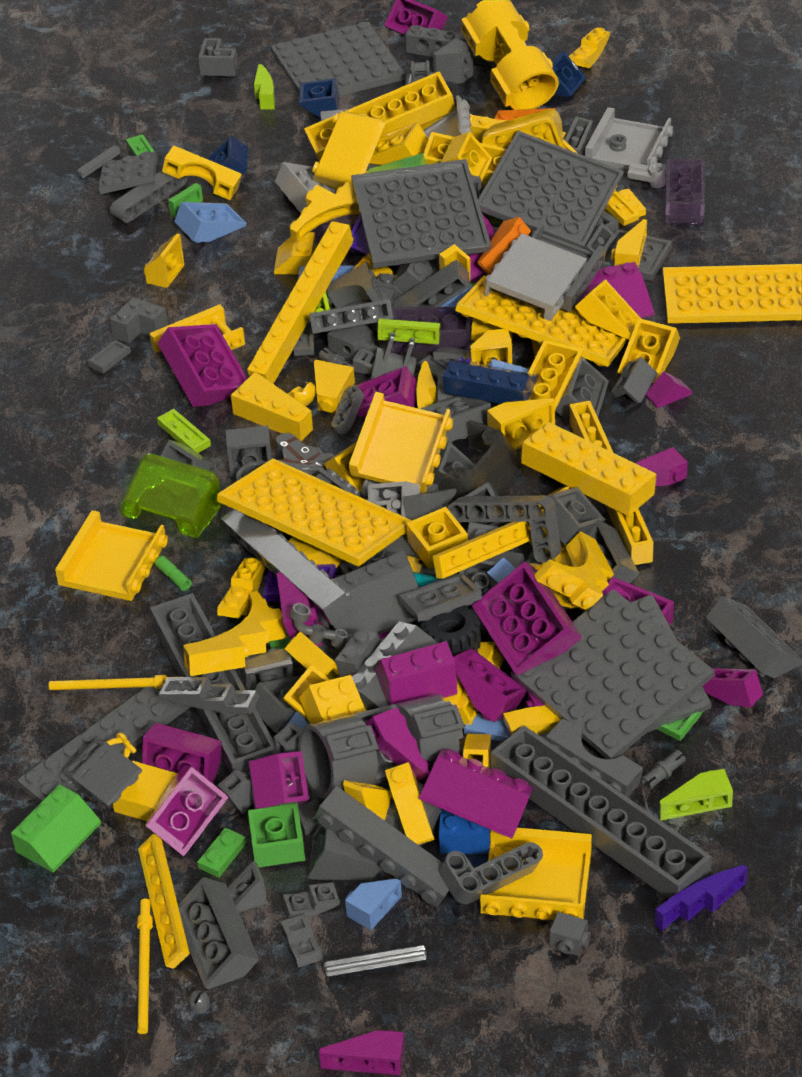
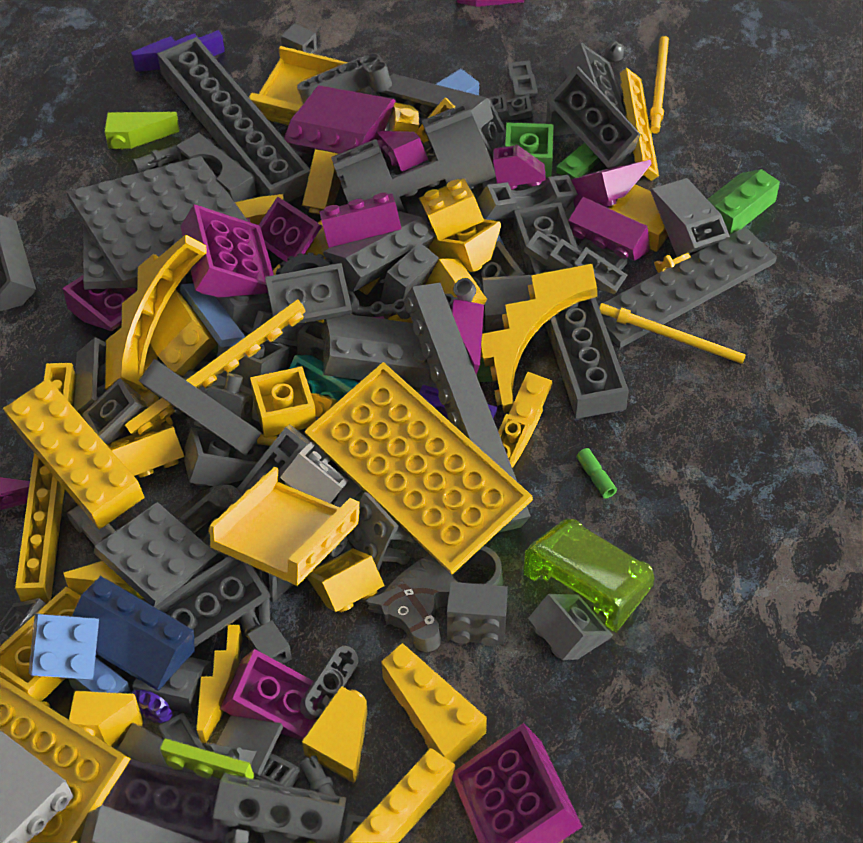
camera: 170 degrees left, 10 degrees up
(110, 558) = (666, 509): yellow panel -> none
(183, 431) = (560, 697): lime plate -> none
(208, 856) = (595, 119): none -> dark grey slope
(304, 396) = (388, 718): yellow hair -> none
(375, 960) = (463, 55): axle -> none
(492, 418) = (155, 554): none -> dark grey plate
(526, 347) = (63, 646): none -> medium blue brick
(735, 686) = (55, 220): magenta slope -> none

